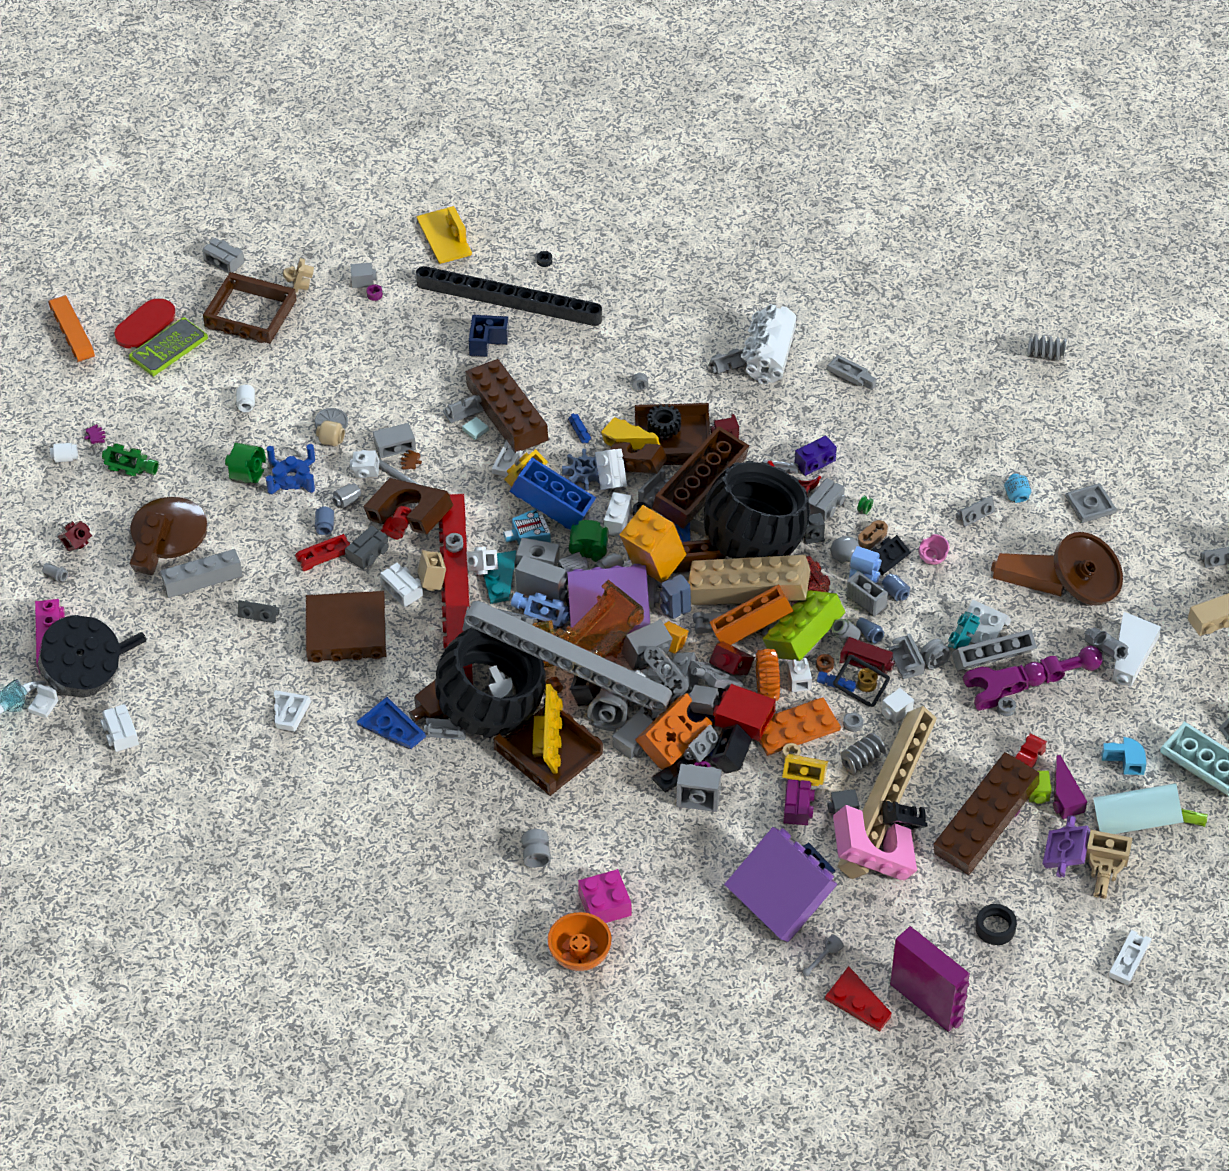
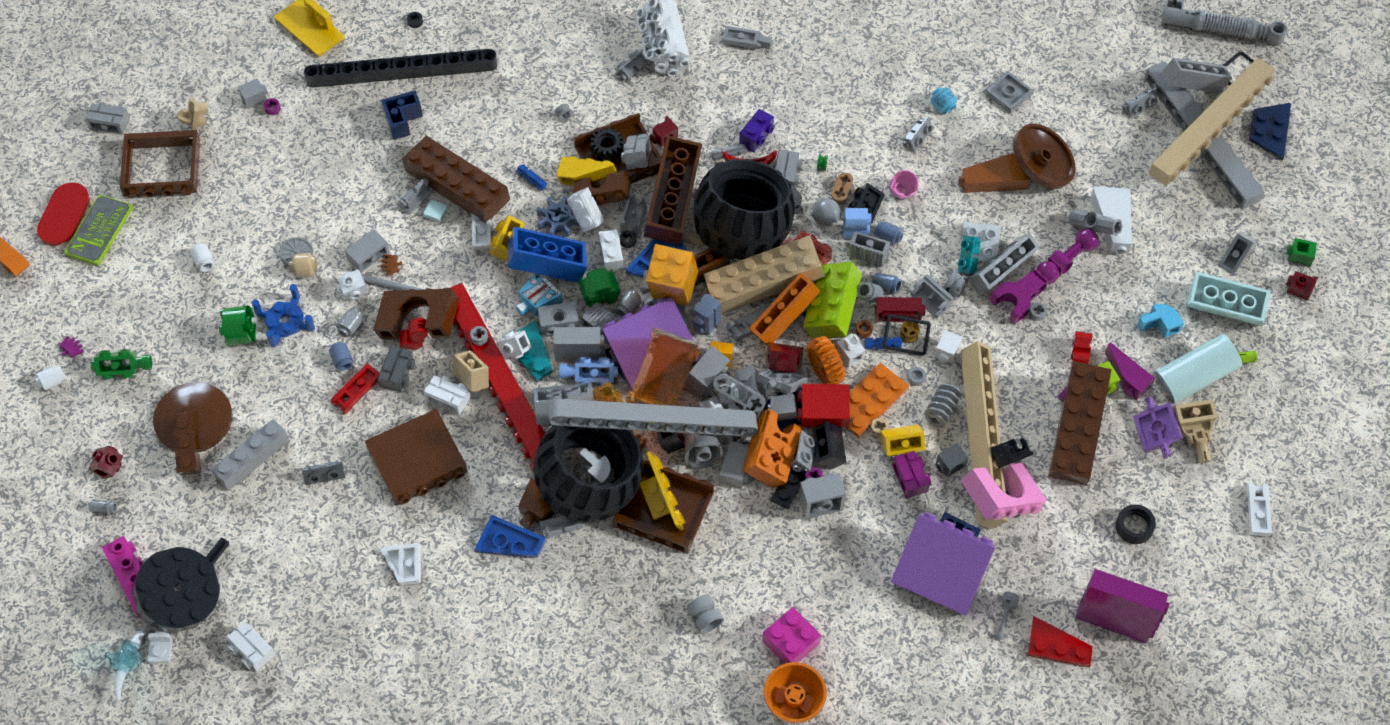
camera: 25 degrees left, 10 degrees up
(687, 435) = (636, 151): none -> light grey brick

